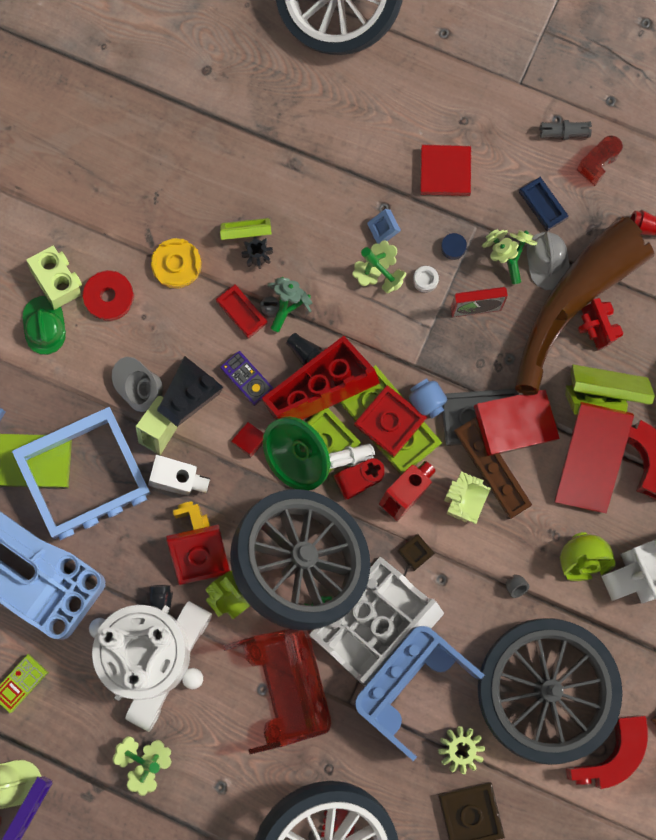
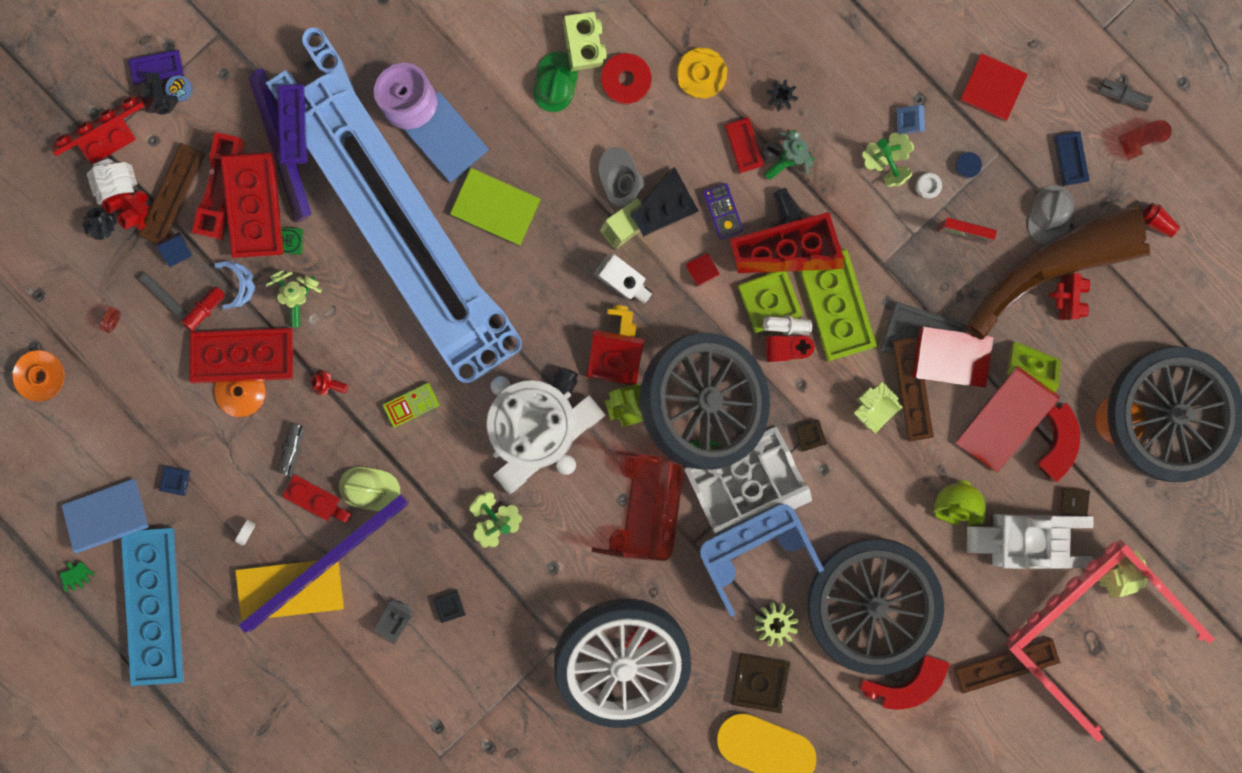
camera: 20 degrees right, 10 degrees up
(62, 436) = (552, 283): light blue window -> none
(245, 228) = (780, 68): lime tile -> none
(296, 453) = (740, 303): green dish -> none
(390, 421) = (838, 307): red tile -> none
(407, 490) = (821, 381): red torso -> none
(428, 398) = (881, 301): medium blue head -> none
(507, 250) = (1014, 193): yellowish green plant -> none
(517, 586) = (887, 504): dark grey hinge -> none
(612, 384) = (1055, 358): lime tile -> none

